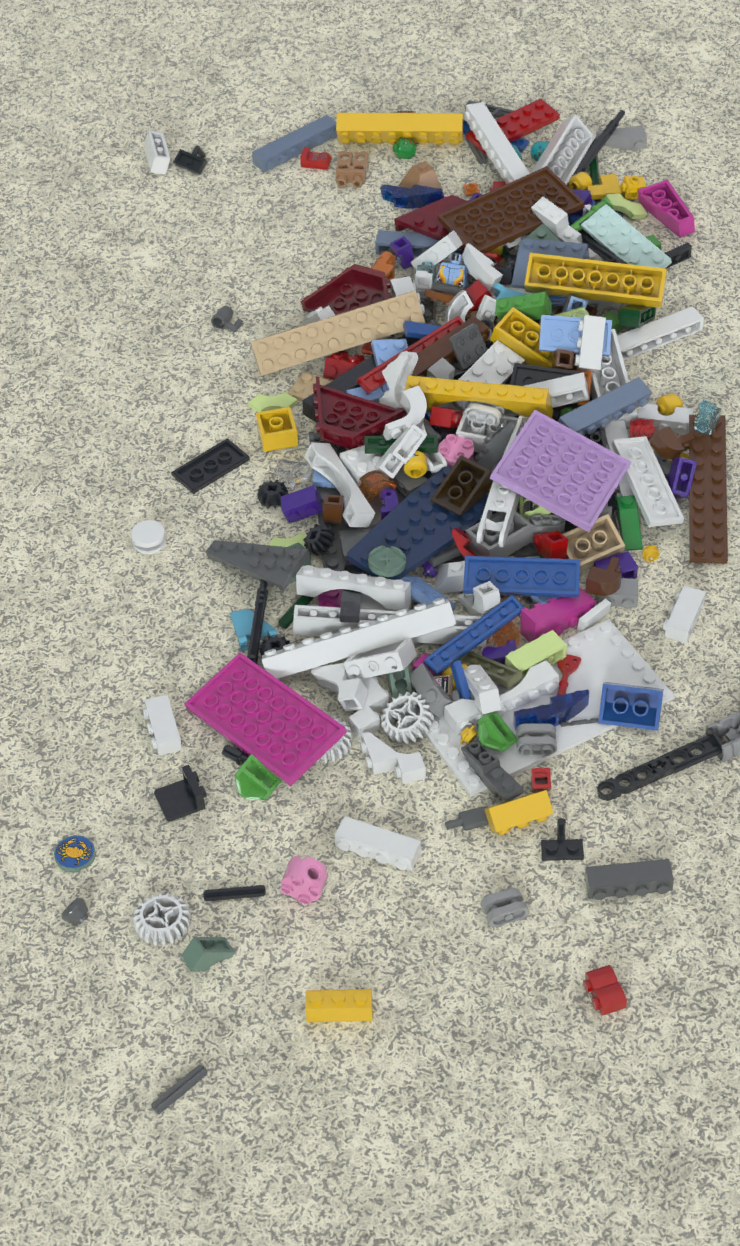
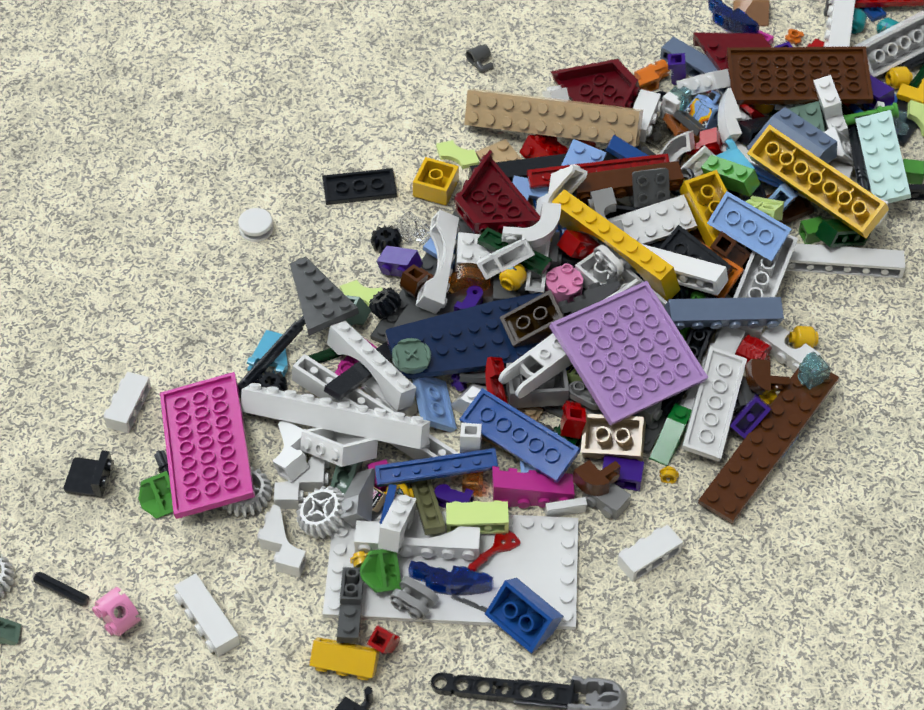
camera: 30 degrees right, 5 degrees up
(469, 819) = (302, 638): dark grey piece -> none
(590, 343) = (755, 241): white brick -> none

